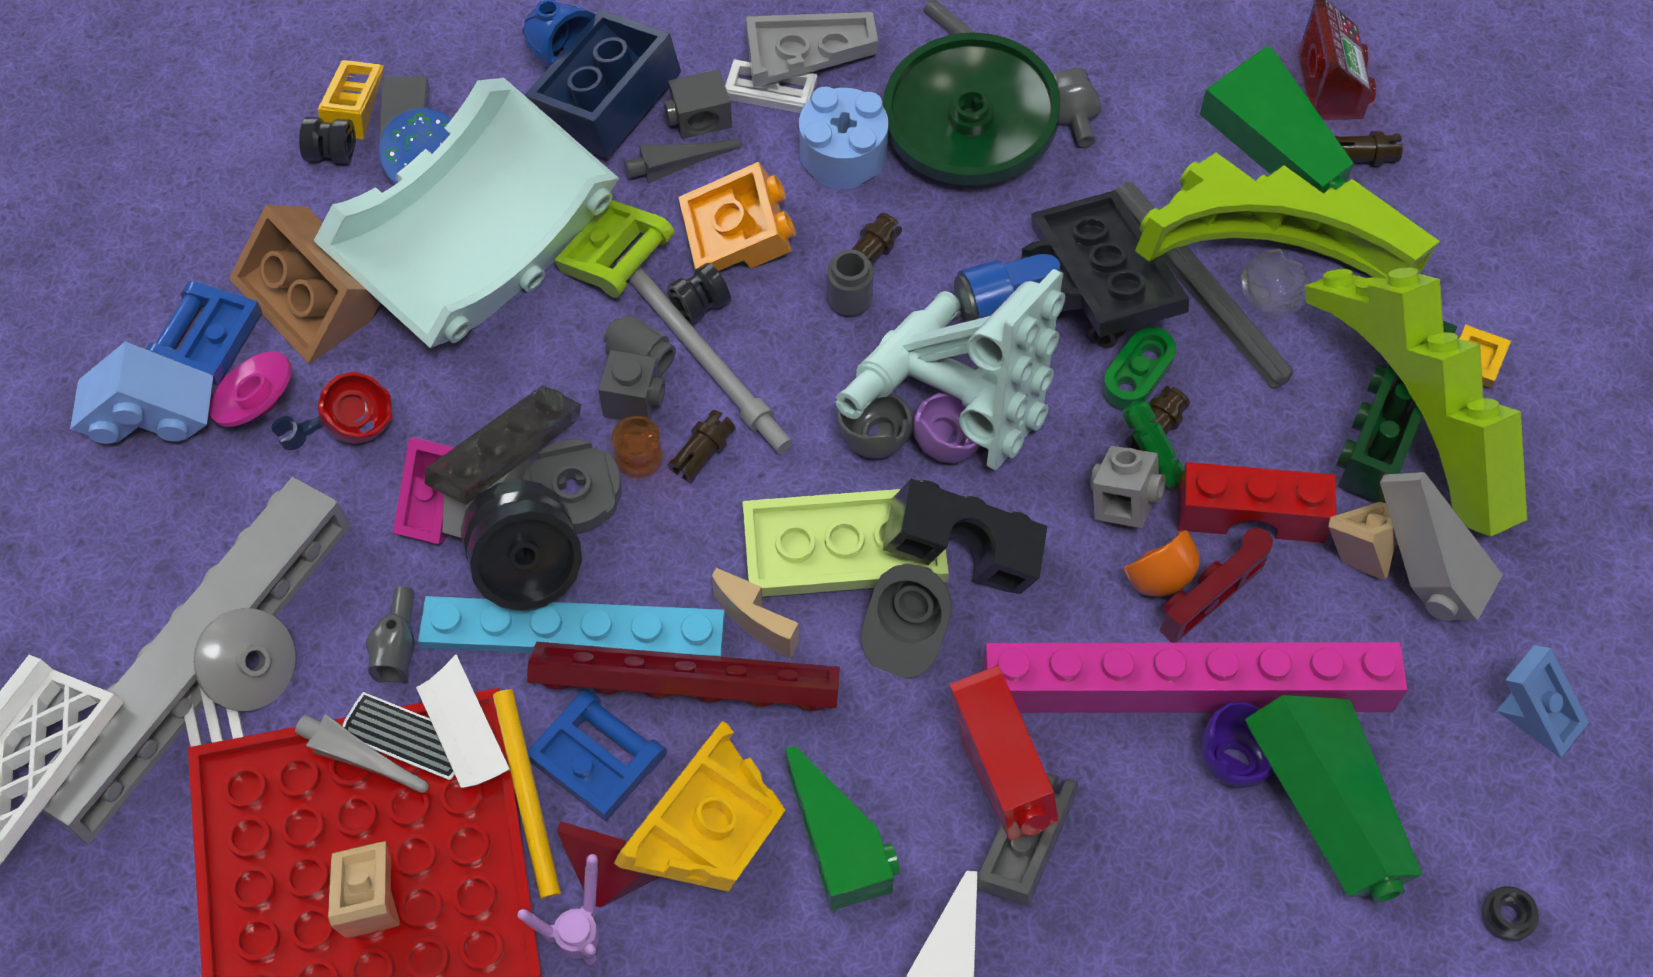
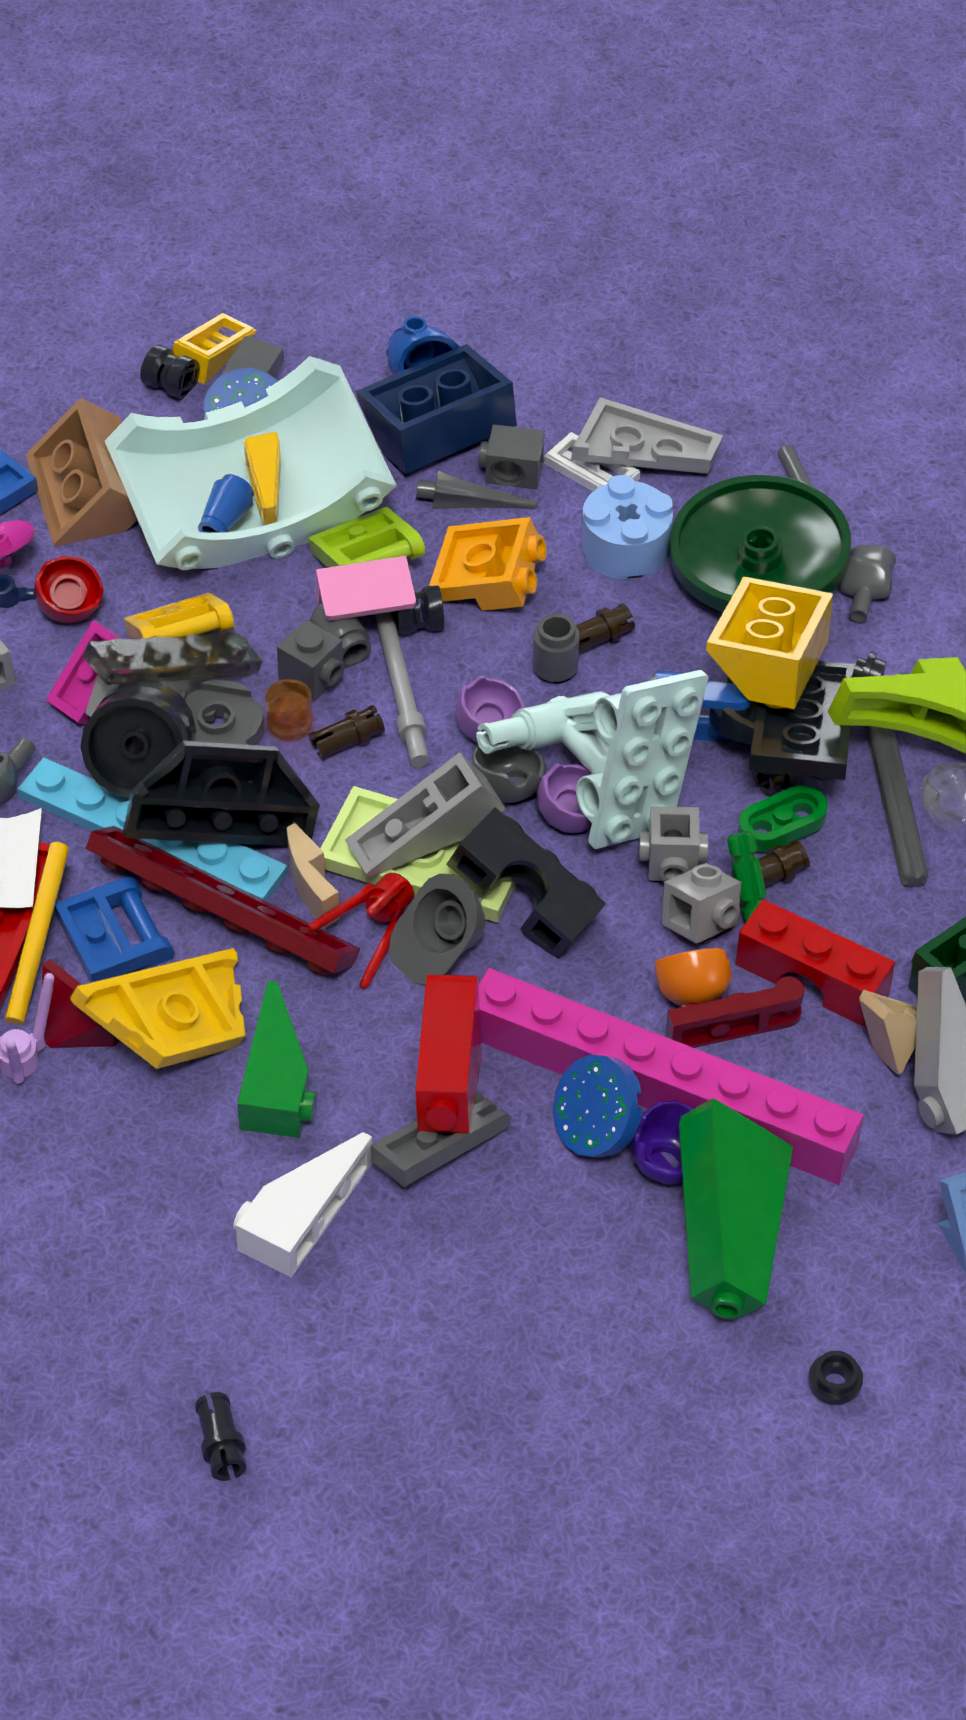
camera: 25 degrees right, 10 degrees down
(462, 260) = (226, 504): none -> blue cone
(480, 210) = (263, 469): none -> yellow slope
(482, 396) = (182, 618): none -> yellow plate
(637, 575) = (221, 797): none -> black wedge
(647, 296) = (365, 588): none -> bright pink panel
(815, 363) = (485, 702): none -> medium lavender hair
(837, 512) = (426, 817): none -> light grey slope
(840, 611) = (383, 903): none -> red plant
(1052, 199) = (771, 639): none -> yellow slope
(1068, 438) = (672, 842): none -> light grey brick
(1141, 197) = (869, 667): none -> black plate
(1159, 739) = (597, 1106): none -> blue tile

